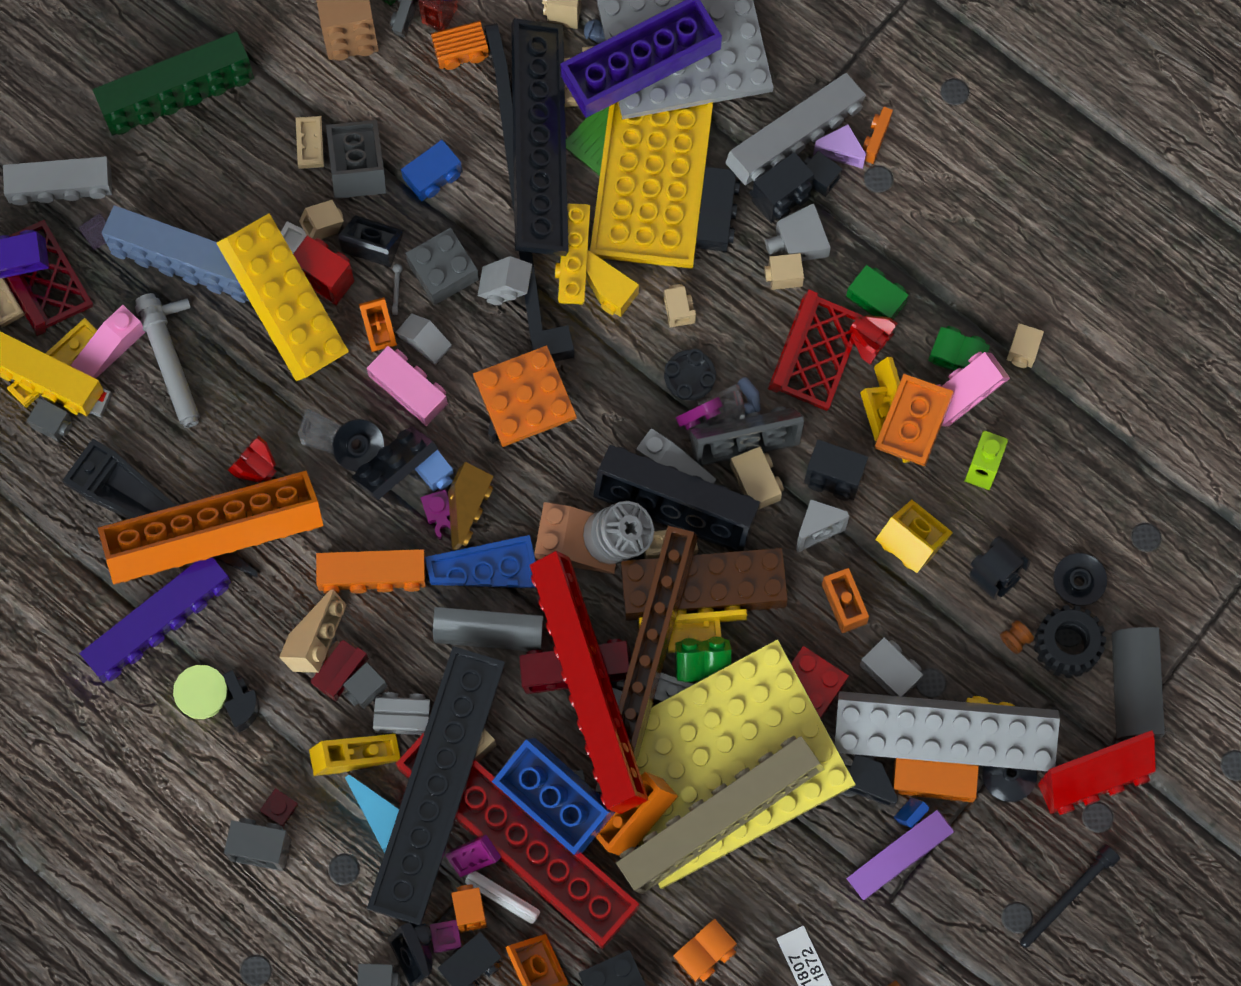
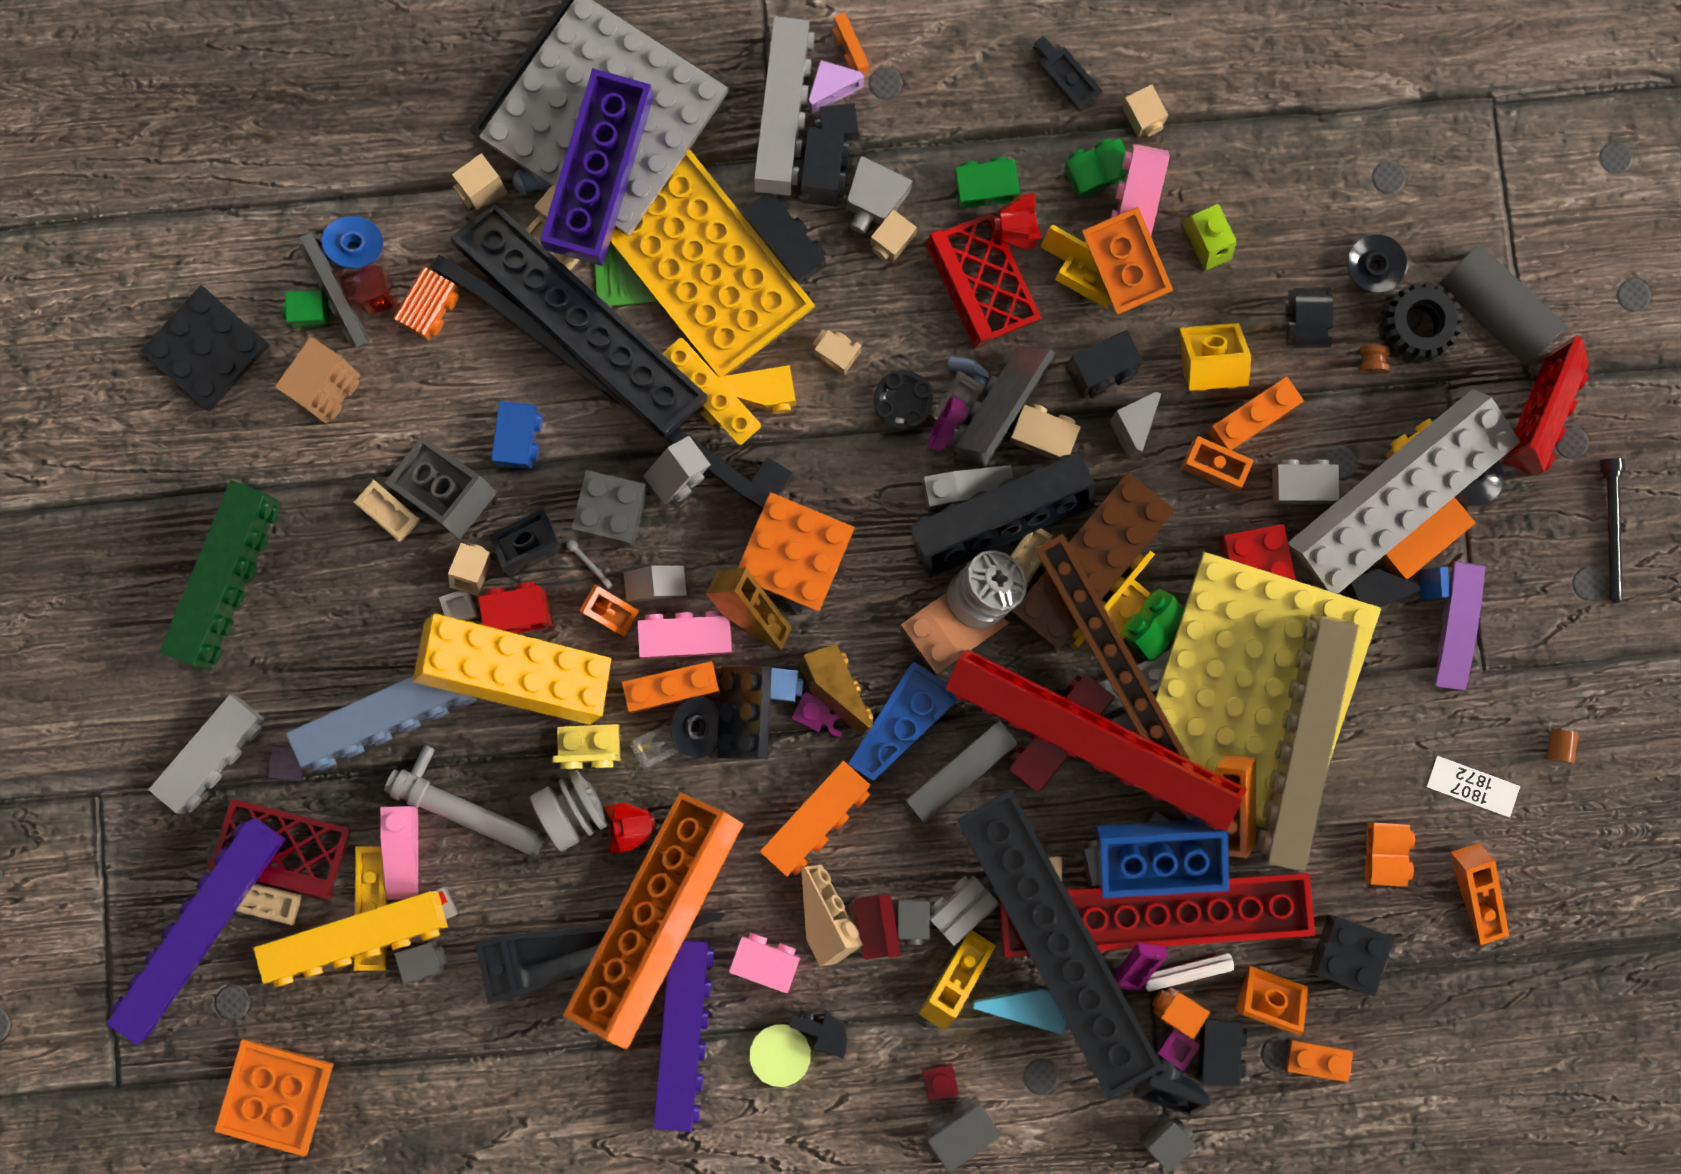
camera: 50 degrees left, 10 degrees up
(234, 417) = (569, 810): none -> light grey wheel
(249, 626) = (765, 963): none -> bright pink brick
(281, 392) = (588, 744): none -> light yellow bracket
(367, 405) = (671, 687): none -> orange brick
(463, 400) = (747, 605): none -> pearl gold slope
(902, 596) = (1256, 415): none -> orange brick
(998, 278) = (1066, 74): none -> black hinge

